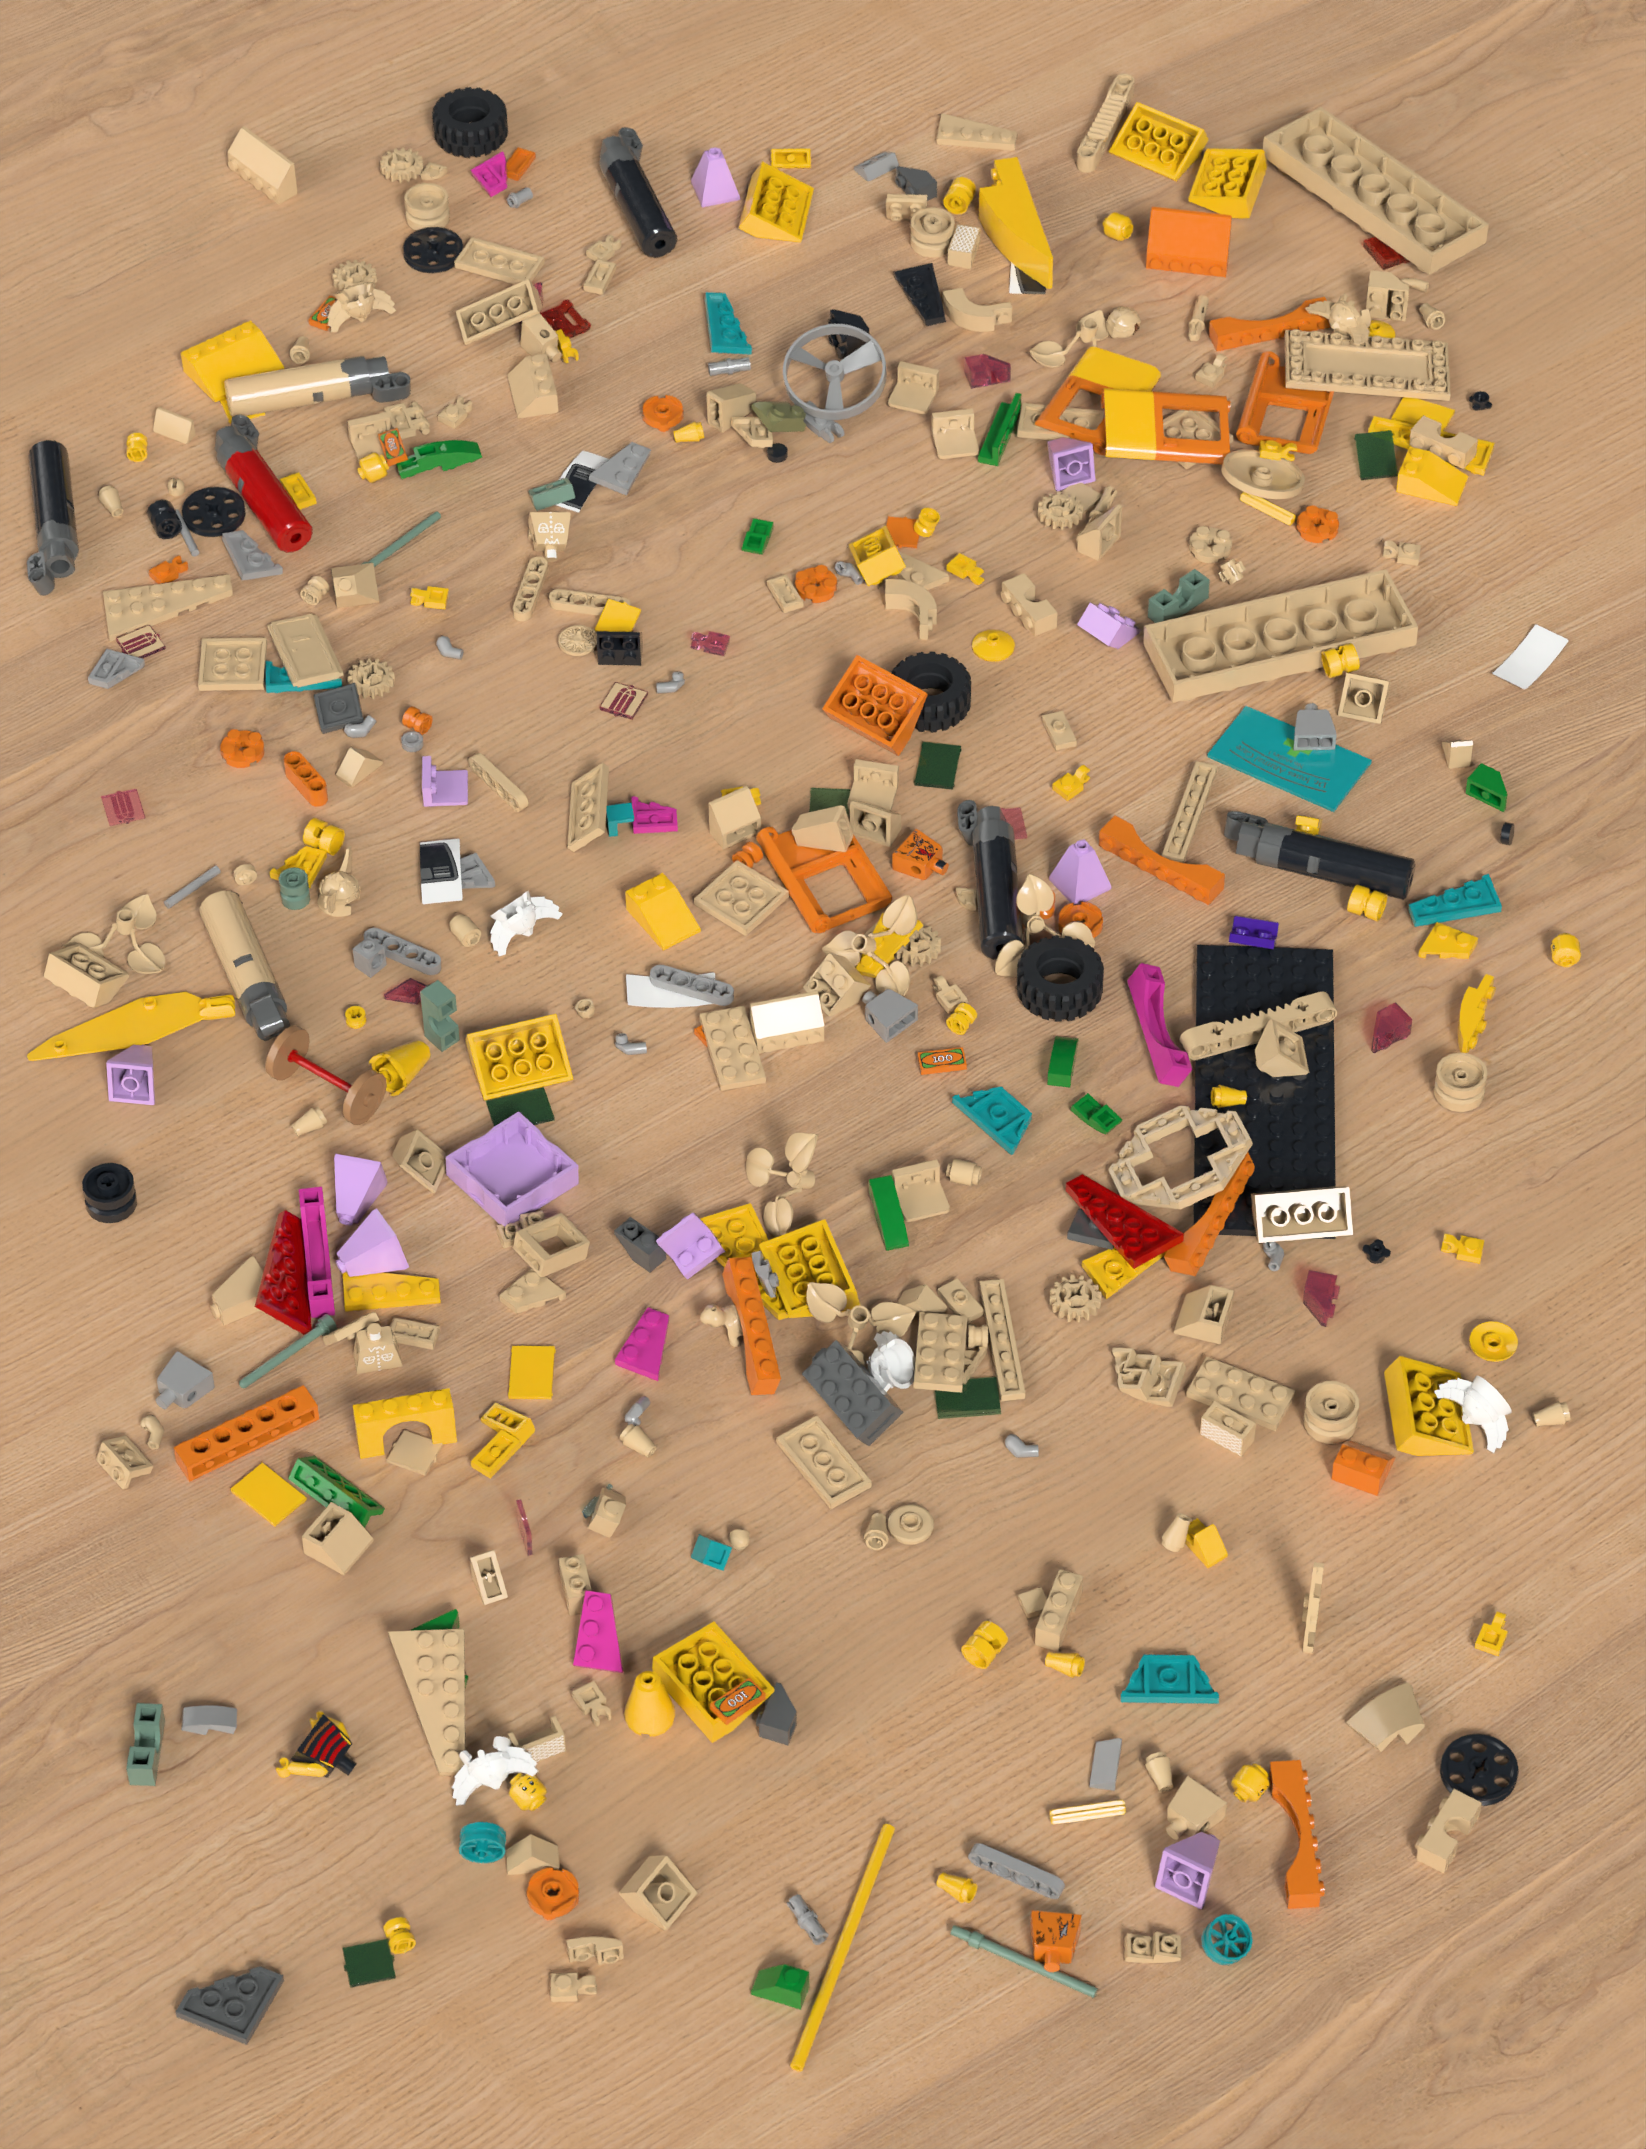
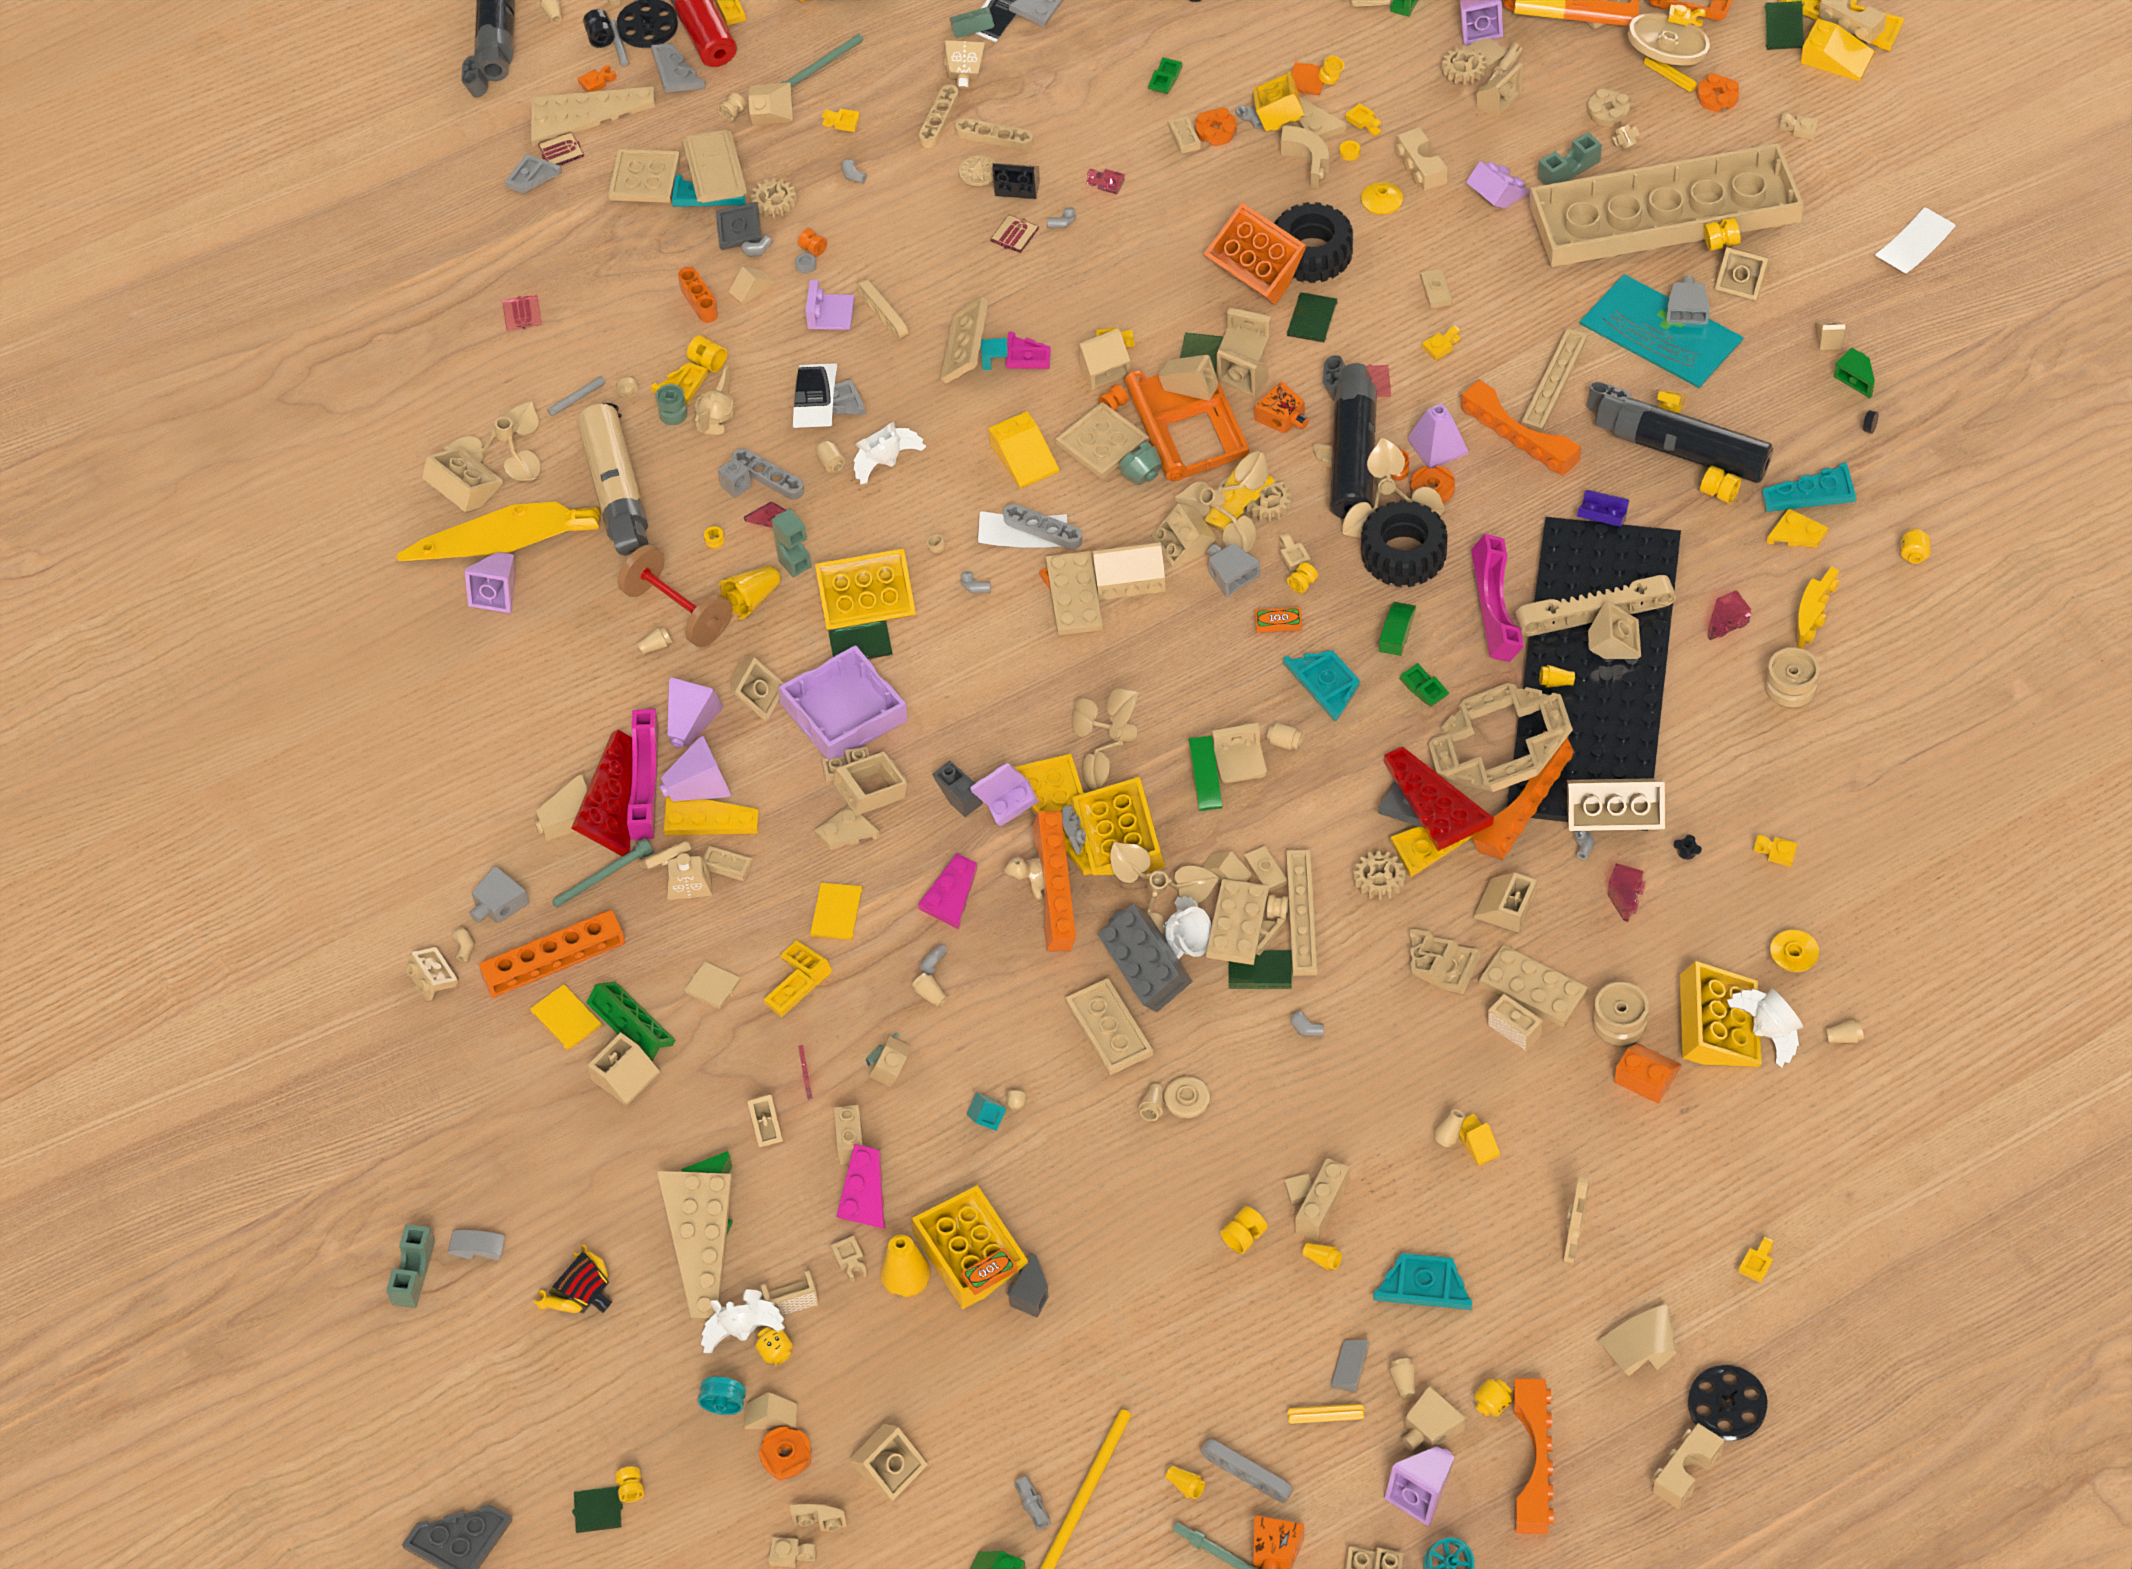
camera: 10 degrees right, 5 degrees up
(109, 1192) = (453, 700): black wheel -> none
(236, 739) = (638, 251): orange plate -> none
(376, 1417) = (727, 944): yellow arch -> none
(618, 617) = (1018, 150): yellow piece -> none
(785, 918) = (1141, 464): none -> sand green cone
(955, 600) = (1349, 150): none -> yellow tile

